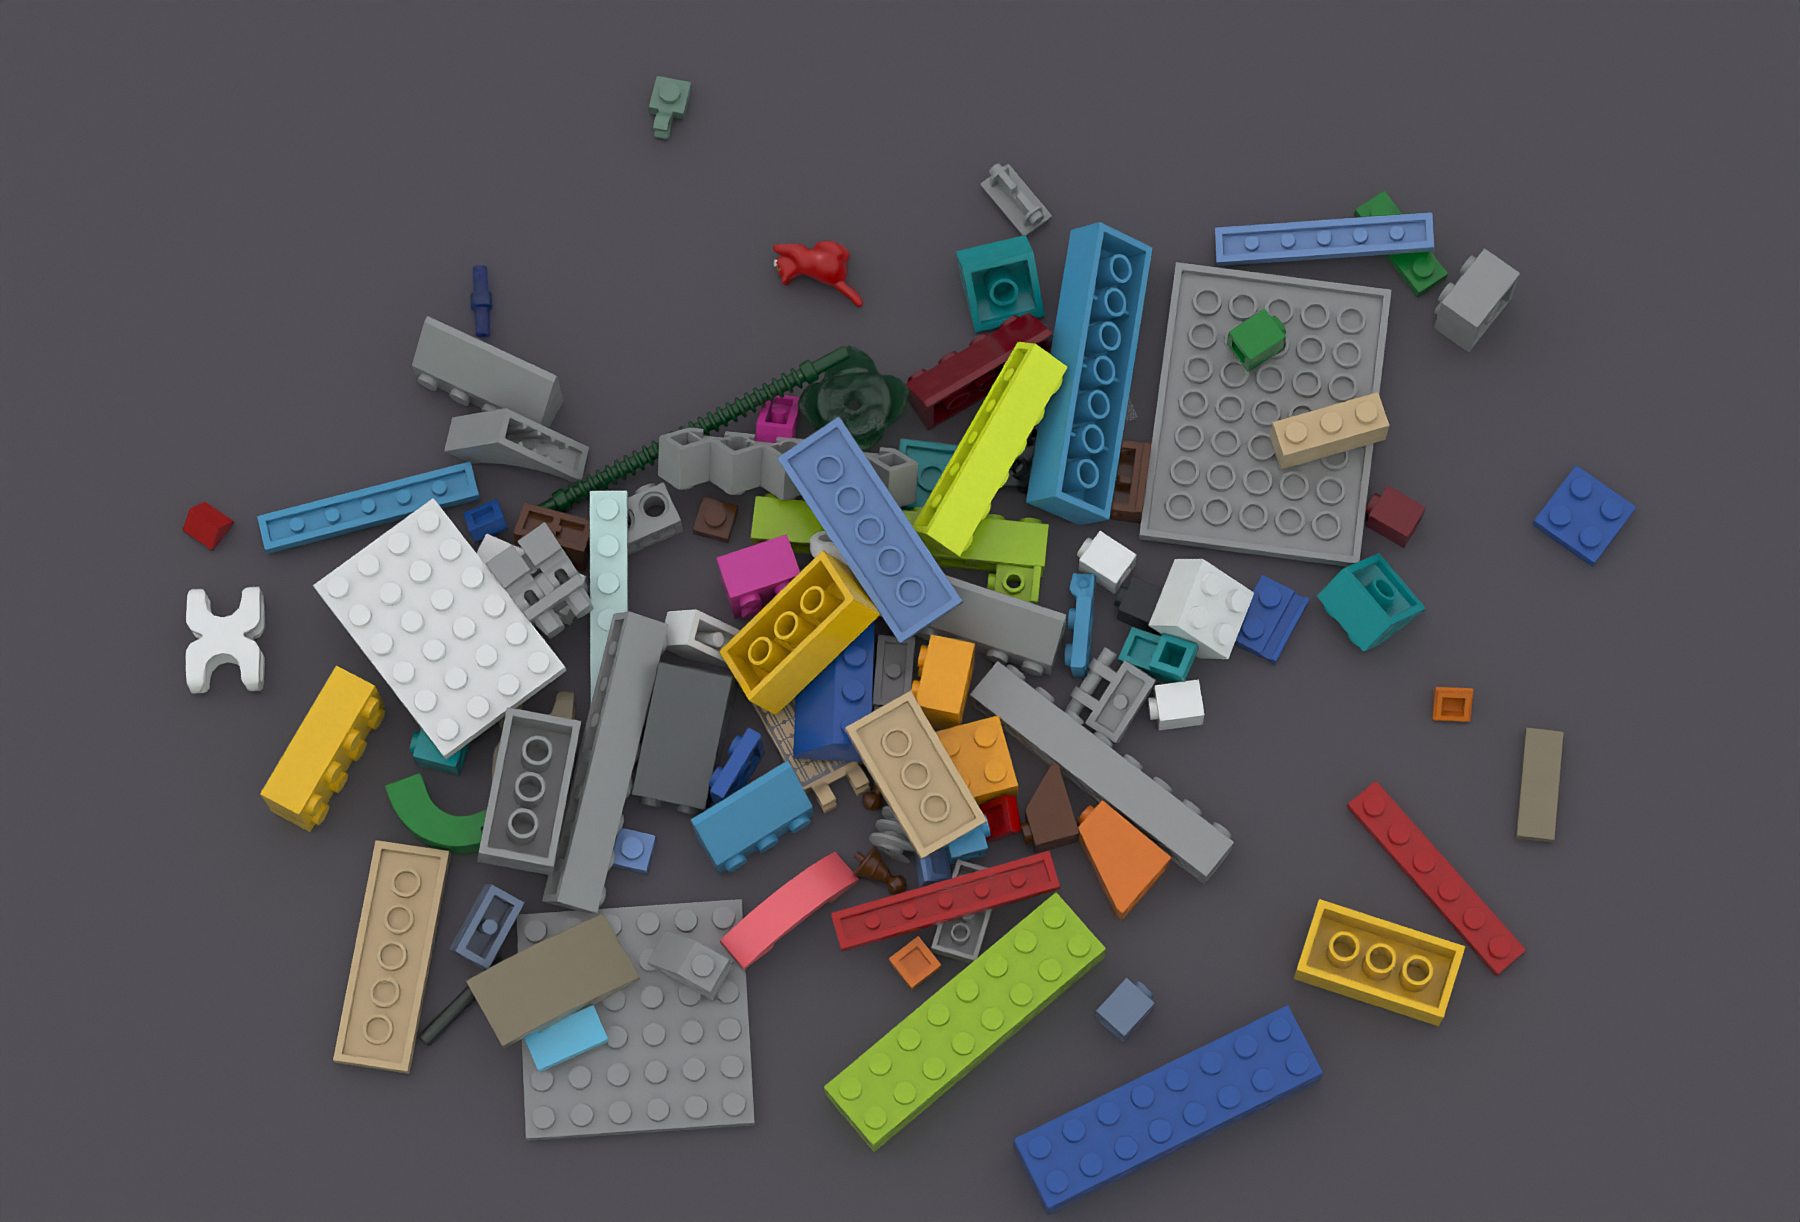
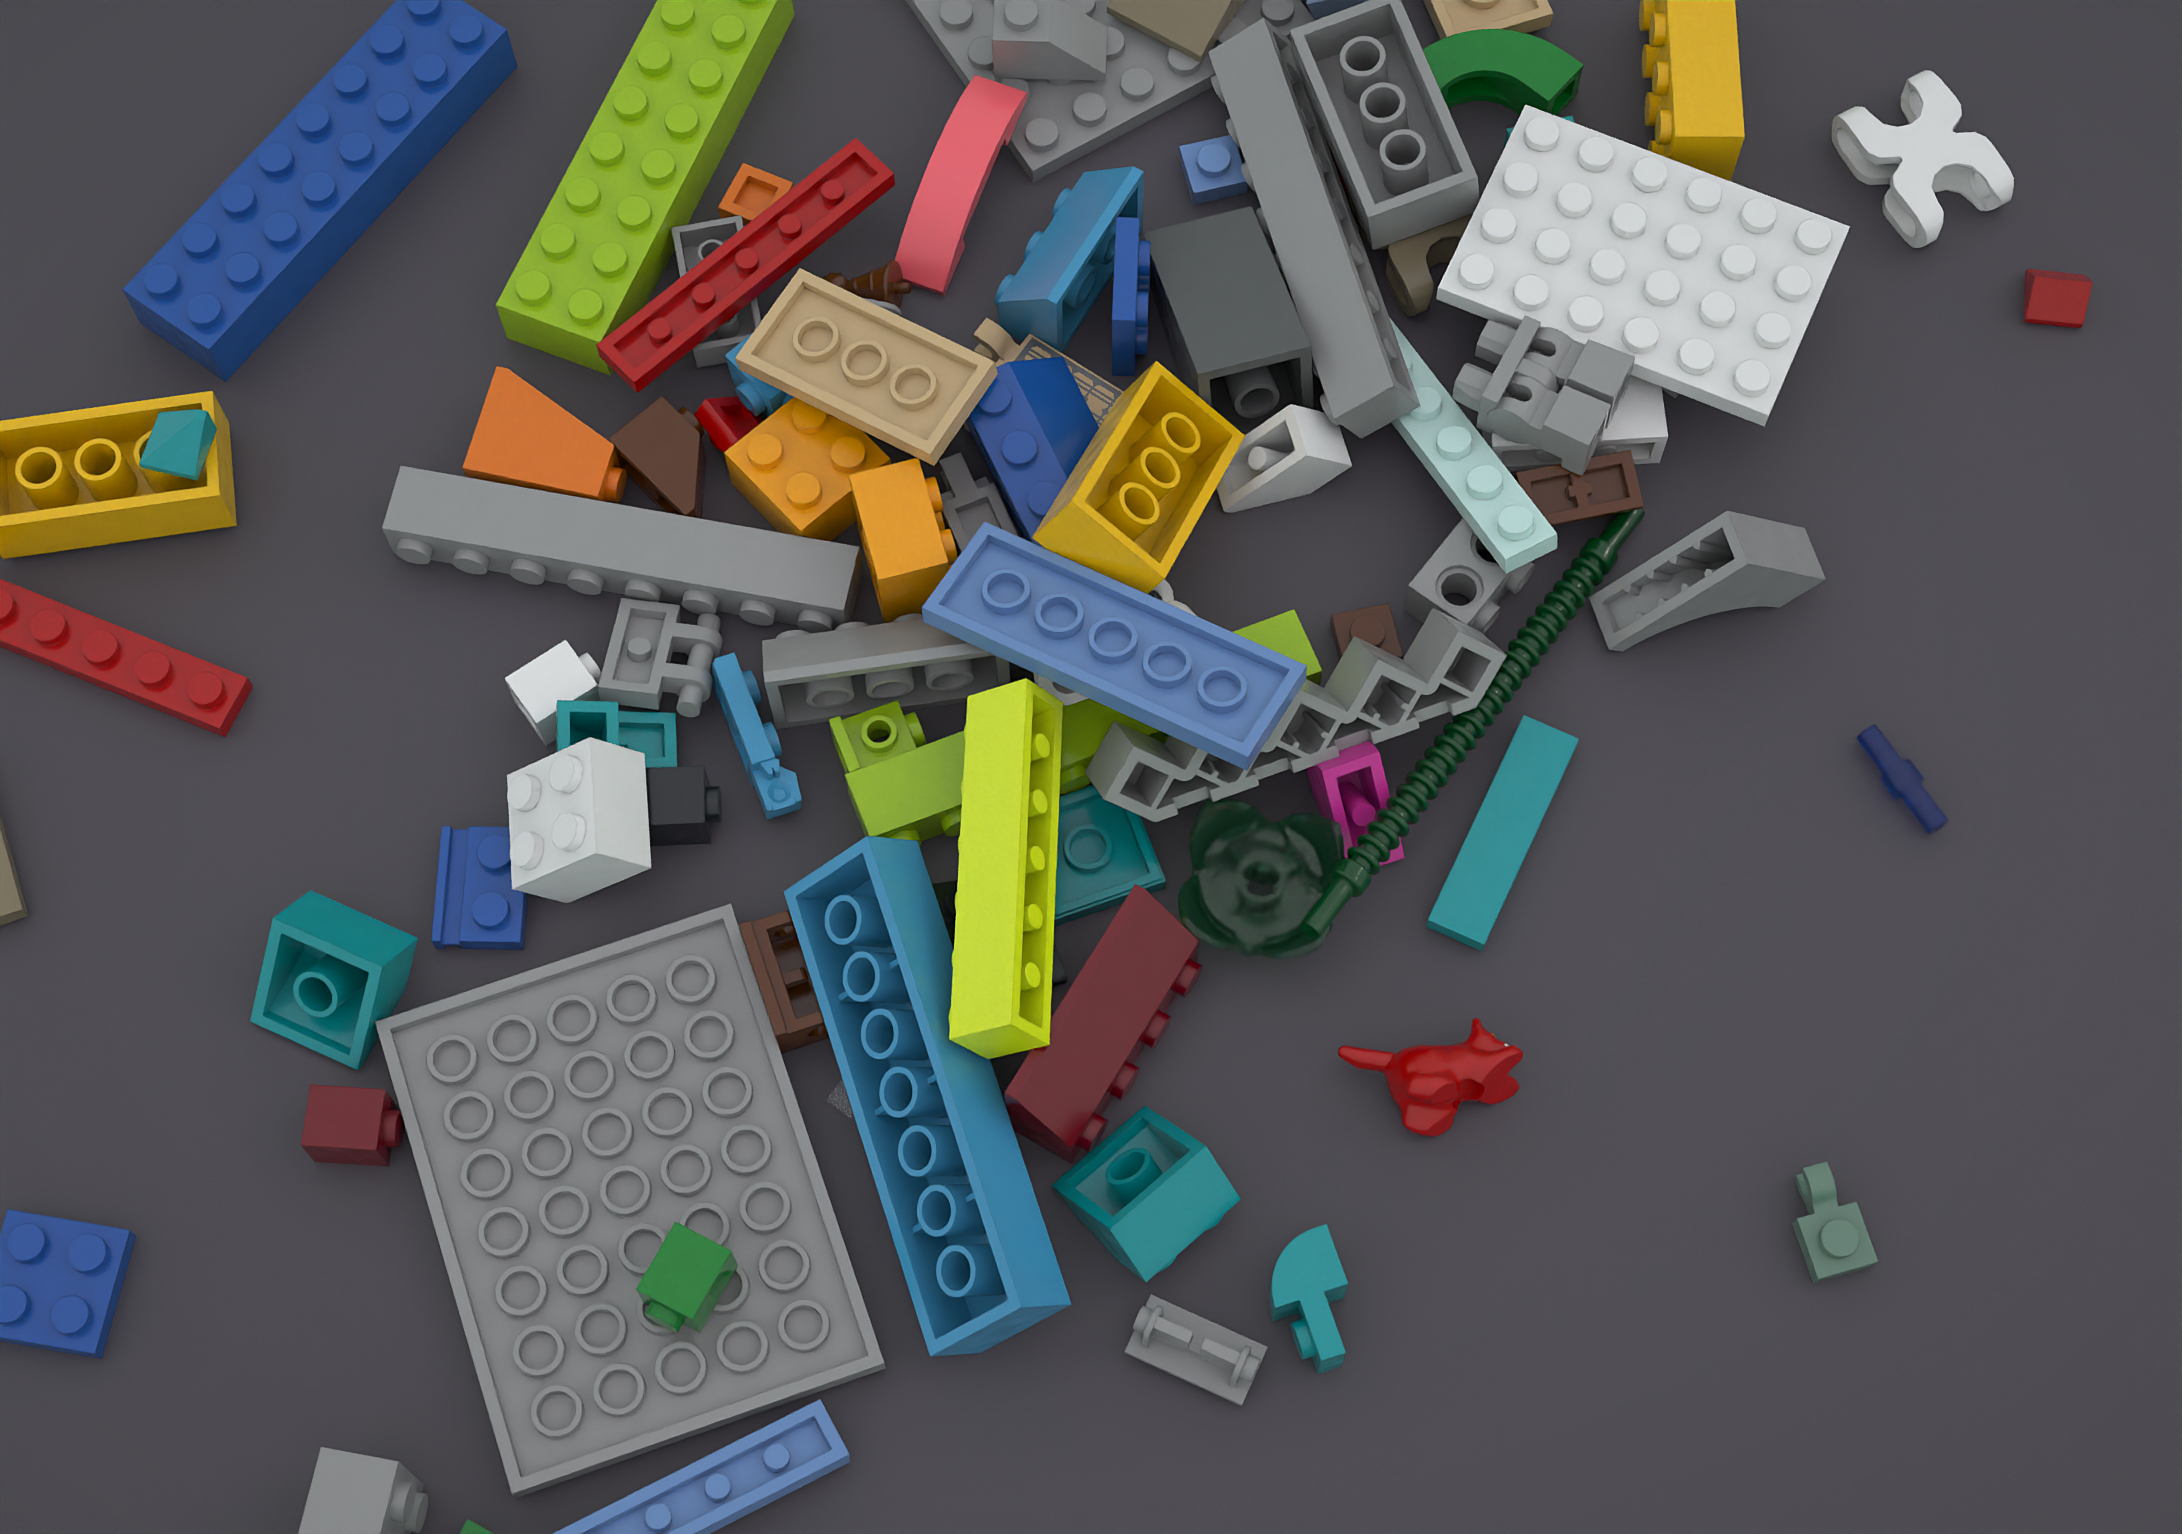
camera: 150 degrees right, 5 degrees down
(366, 507) = (1859, 411): dark azure plate -> none
(484, 374) = (1815, 658): light grey slope -> none
(485, 520) = (1684, 472): blue plate -> none
(706, 378) = (1502, 833): none -> teal tile
(757, 575) = (1247, 557): dark pink brick -> none
(946, 200) = (1303, 1284): none -> teal brick
(1106, 560) = (762, 843): white brick -> none
(1125, 1009) = (441, 269): sand blue brick -> none
(1329, 430) = (502, 1183): tan brick -> none
(1330, 938) = (179, 443): none -> teal slope
(1452, 704) = (152, 899): orange slope -> none

